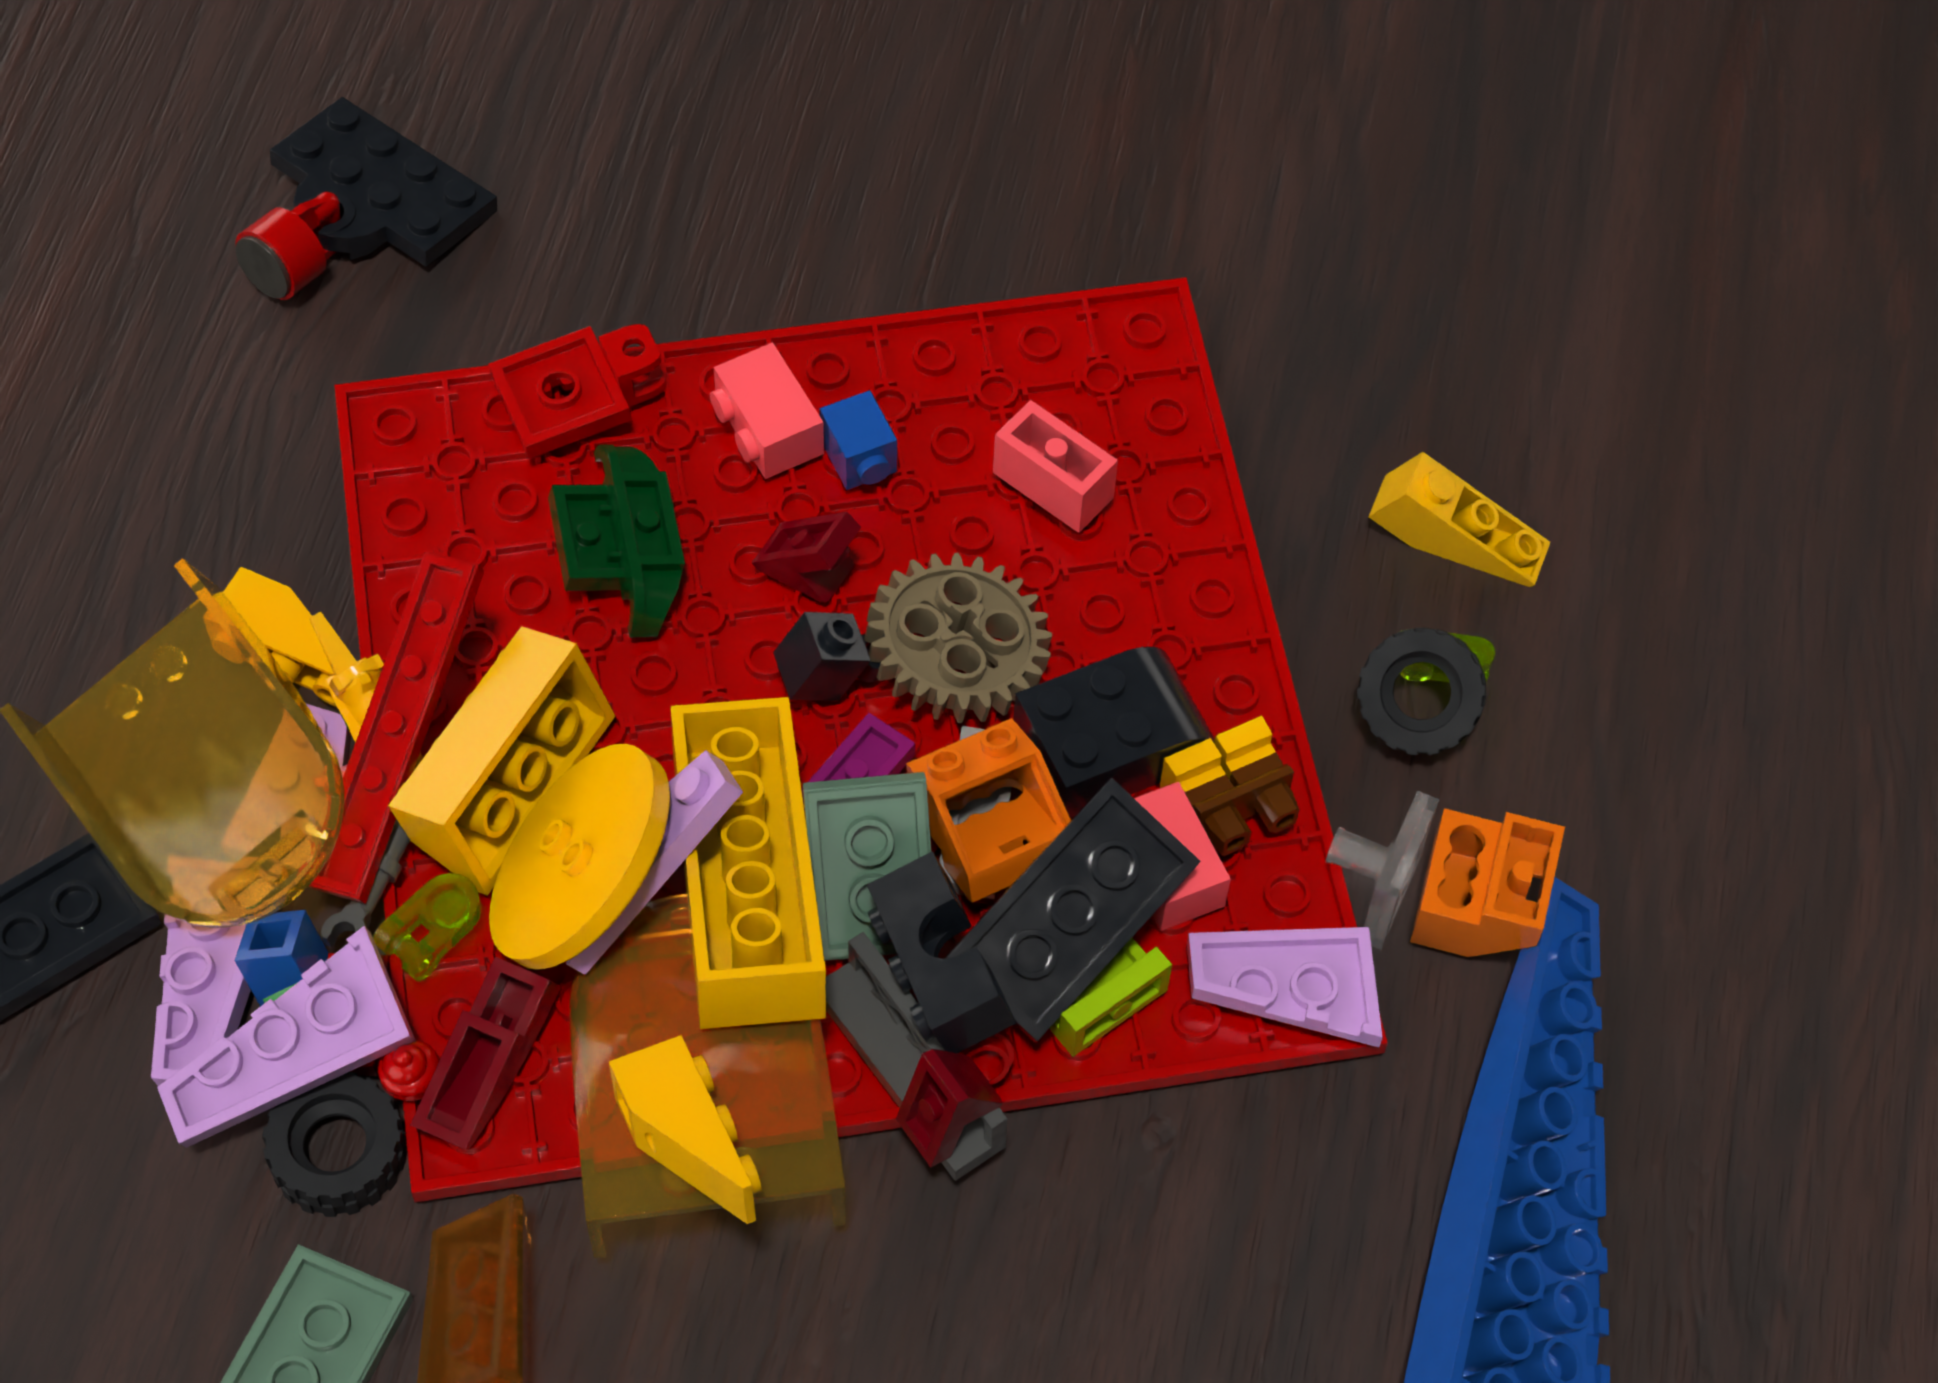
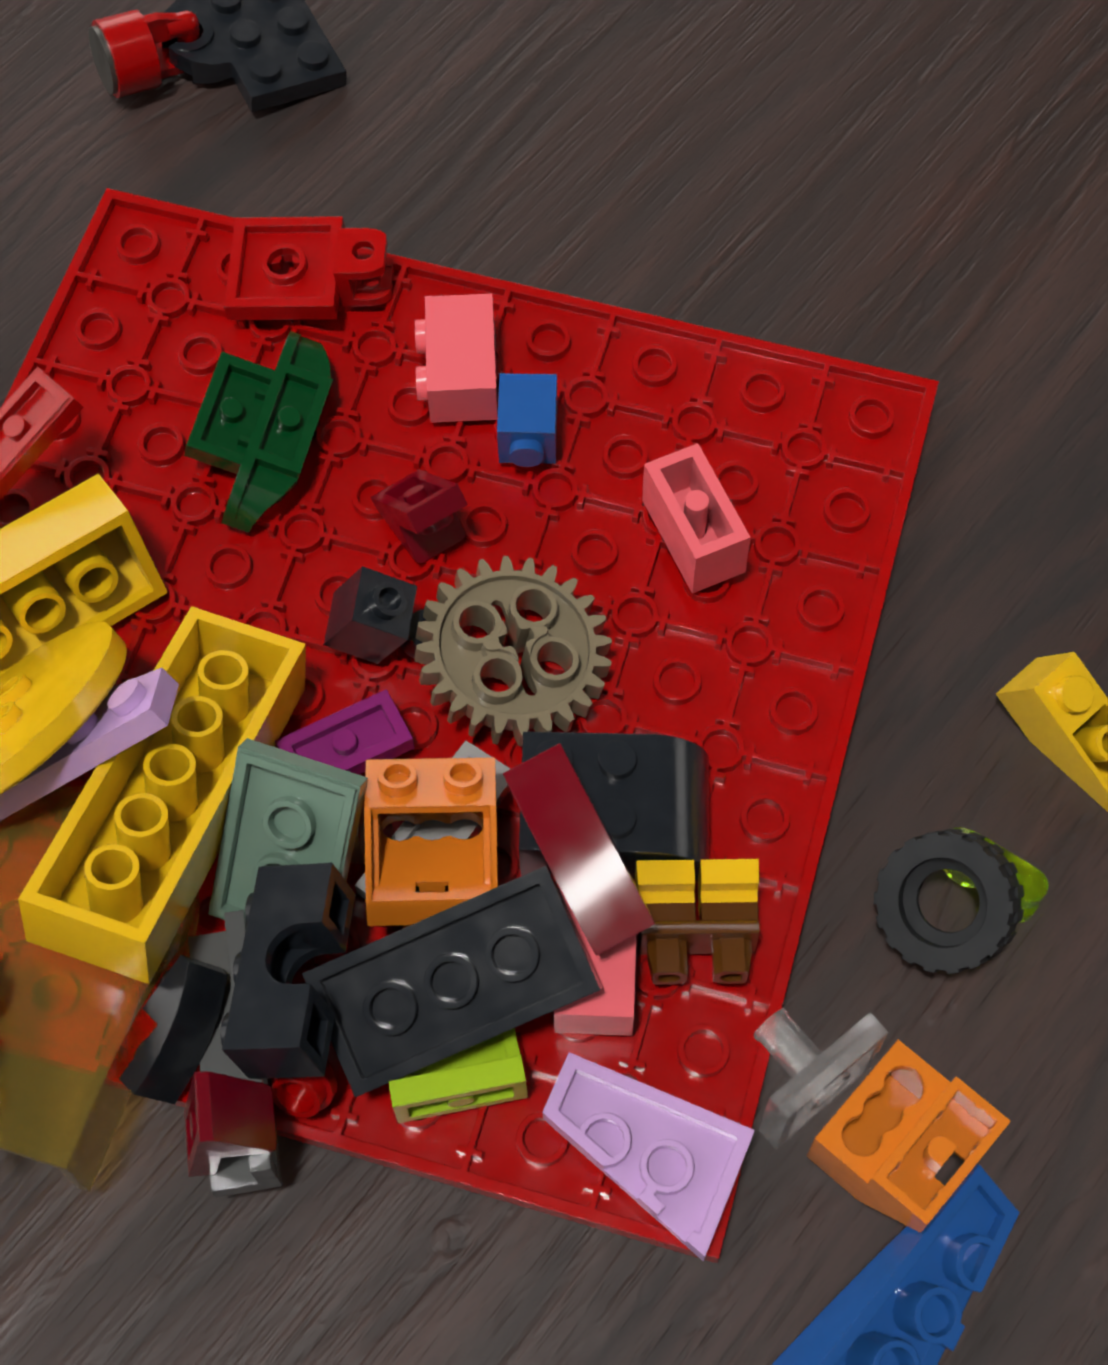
camera: 30 degrees right, 5 degrees up
(855, 1029) = (185, 1015): none -> black slope
(1111, 746) = (578, 849): none -> dark red slope

